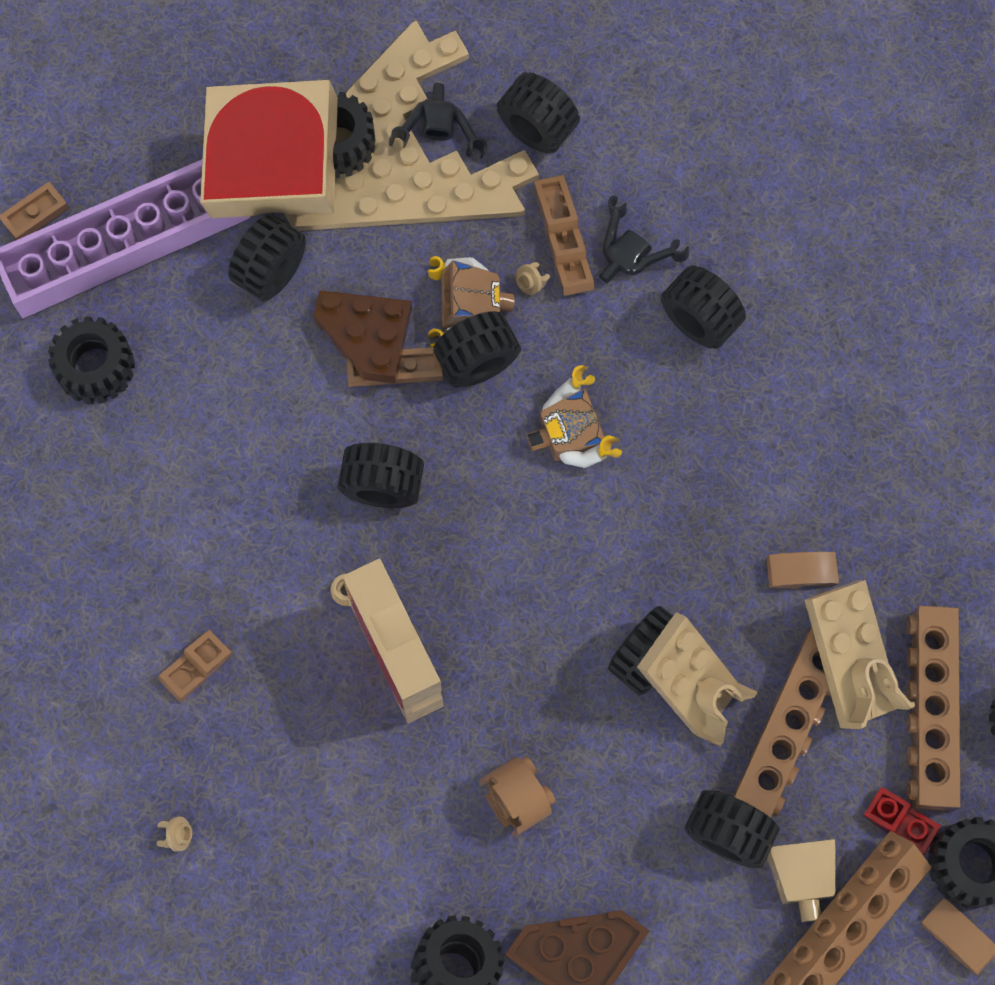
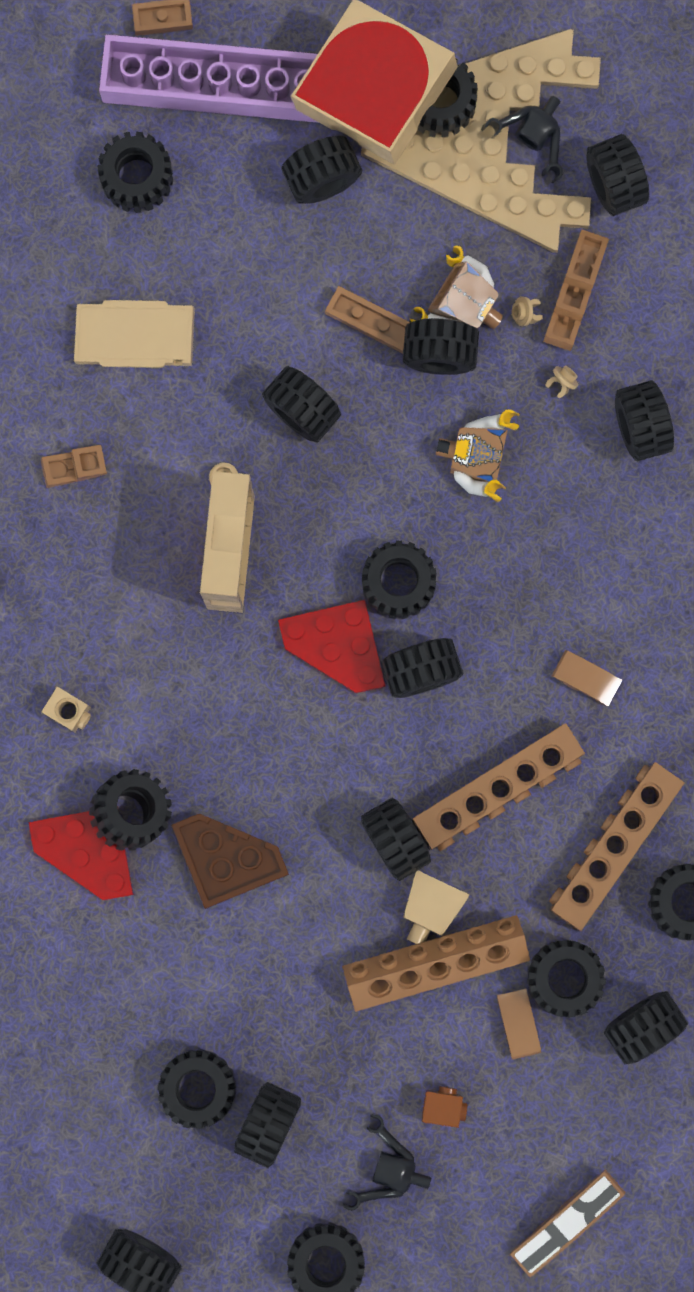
camera: 35 degrees right, 10 degrees up
(179, 507) = (134, 334): none -> tan piece
(317, 899) = (58, 701): none -> tan brick
(366, 331) = (365, 276): reddish brown plate -> none
(517, 795) = (253, 714): medium nougat brick -> none
(552, 681) = (337, 644): none -> red plate
(571, 610) = (399, 554): none -> black tyre
(604, 314) = (565, 377): none -> tan plate
(631, 250) = (620, 336): black piece -> none
(692, 679) = (438, 709): tan plate -> none
(854, 655) = (577, 767): tan plate -> none
(896, 815) = (533, 914): red slope -> none

